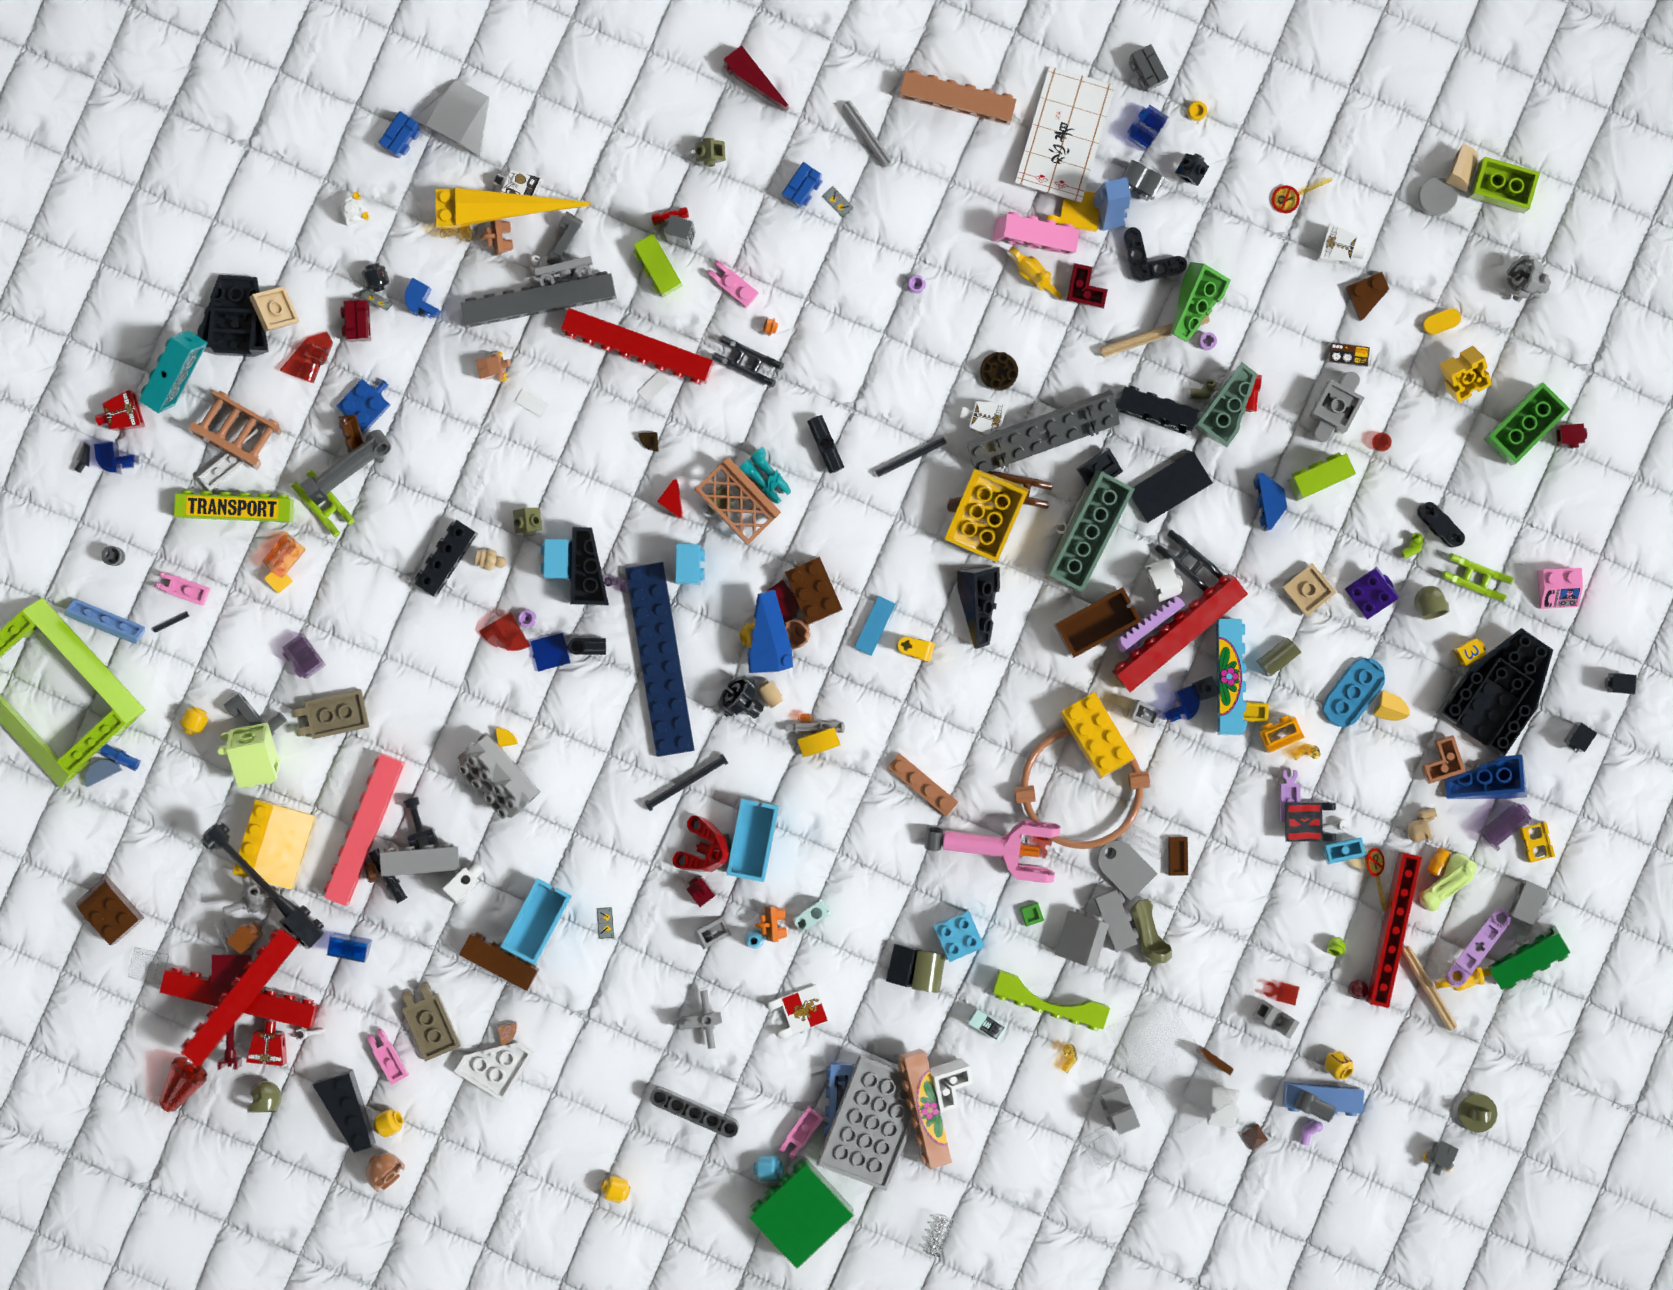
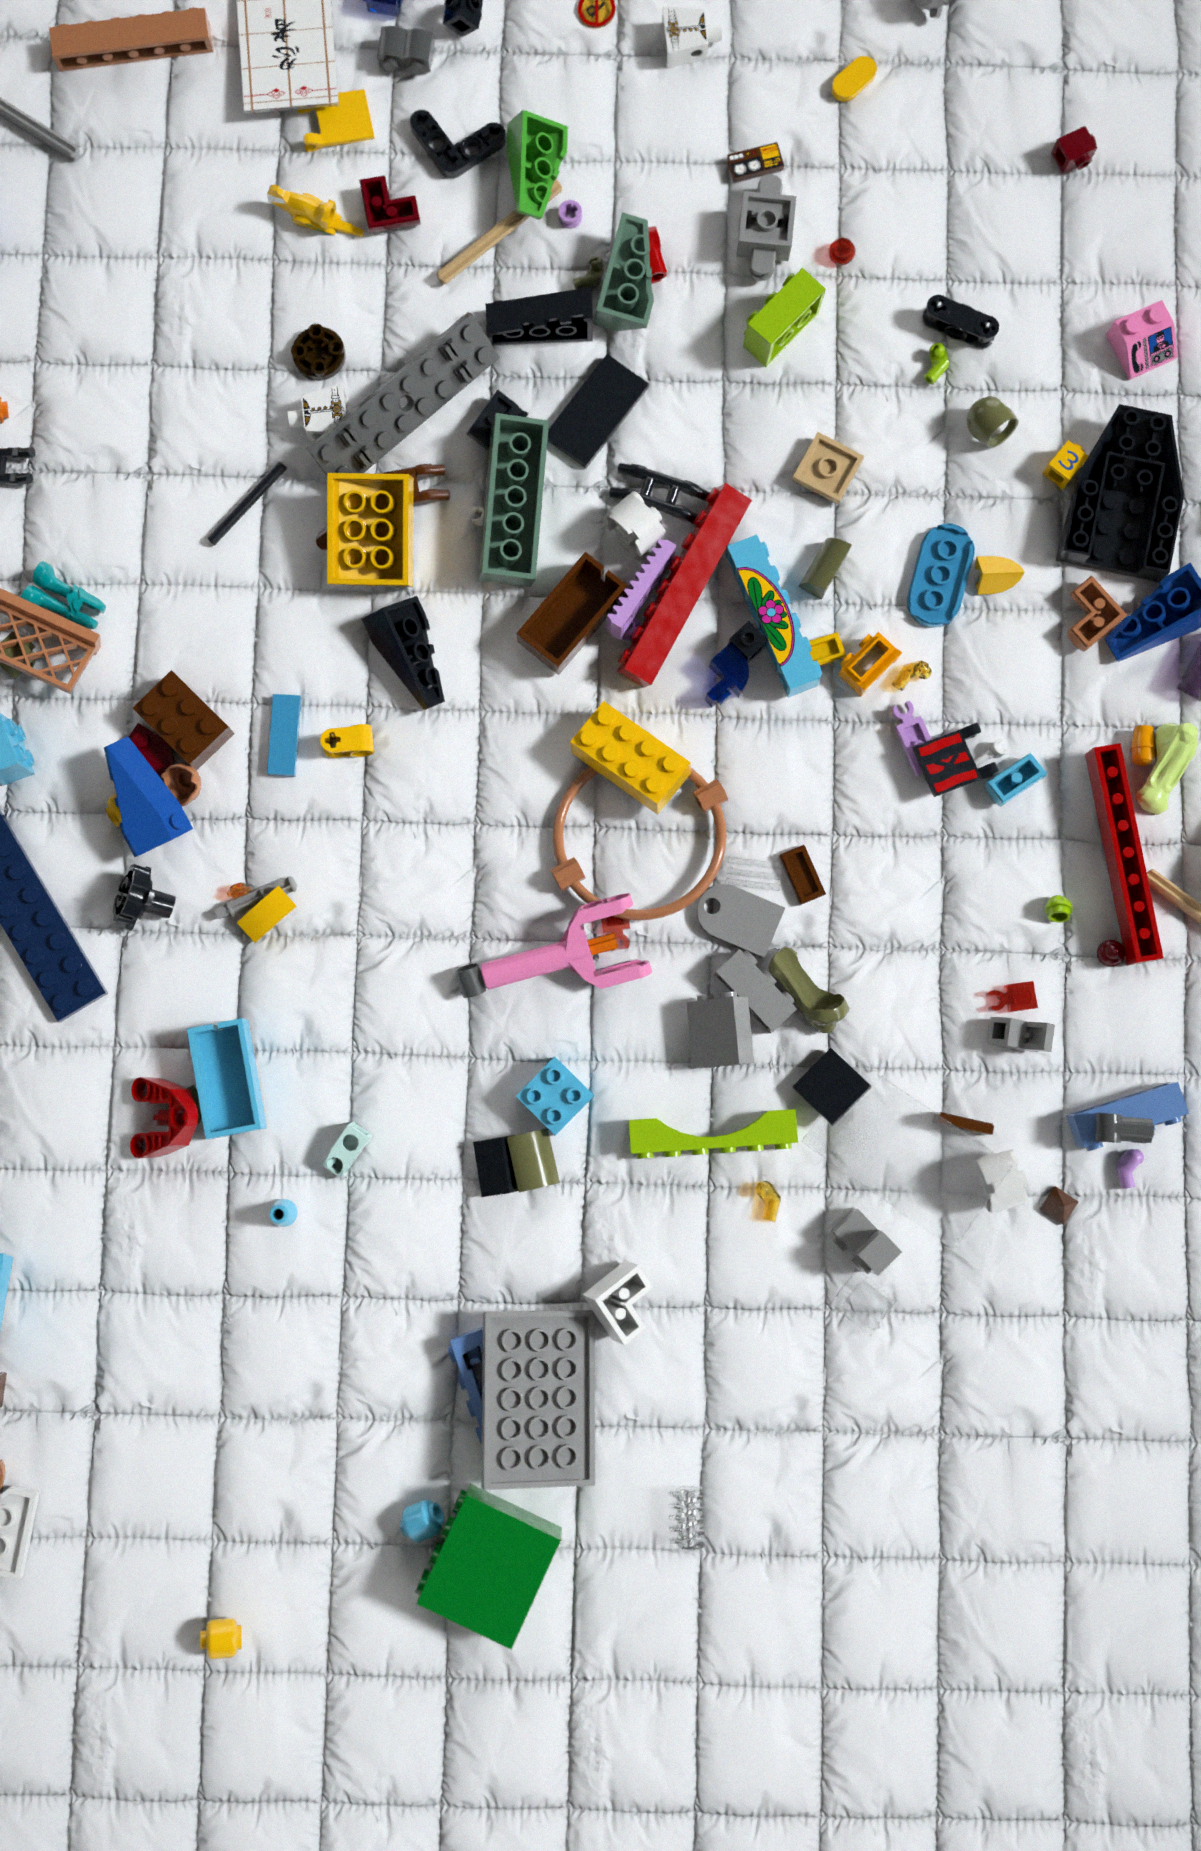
camera: 25 degrees left, 5 degrees down
(605, 923) = (73, 1273): light grey sticker -> none
(686, 782) = (74, 1087): black bar -> none
(700, 891) = (184, 1177): dark red brick -> none
(701, 1119) = (278, 1490): dark grey beam -> none
(706, 1019) = (258, 1350): light grey piece -> none
(712, 932) = (221, 1227): light grey slope -> none
(768, 924) = (304, 1192): orange hips -> none
(769, 693) = (177, 877): tan brick -> none
(801, 1009) = (385, 1284): flag -> none
(802, 1131) = (448, 1448): bright pink hinge -> none
(830, 456) = (117, 518): black piece -> none
(838, 202) = (30, 226): light grey sticker -> none
(916, 279) = (168, 279): lavender plate -> none
(922, 784) = (428, 916): nougat plate -> none
(924, 1108) = (602, 1350): nougat brick -> none
(986, 1024) = (640, 1200): leg -> none
(1031, 914) = (641, 1029): bright green tile -> none
(1036, 233) = (296, 162): bright pink wedge -> none
(1112, 201) = (374, 80): medium blue wedge -> none
(1139, 1002) = (831, 1087): none -> black tile
(1143, 713) = (680, 707): light grey slope -> none
(1270, 500) = (731, 375): blue slope -> none
(1338, 1065) = (1129, 1062): yellow head -> none
(1367, 294) = (746, 81): reddish brown wing -> none
(1372, 592) = (910, 438): dark purple plate -> none
(1375, 865) = (1064, 785): clear yellow piece -> none
(1420, 829) = (1101, 712): tan piece -> none
(1465, 374) = (911, 121): yellow brick -> none
(1488, 574) = (1046, 360): lime piece -> none
(1526, 423) = (1014, 155): bright green brick -> none

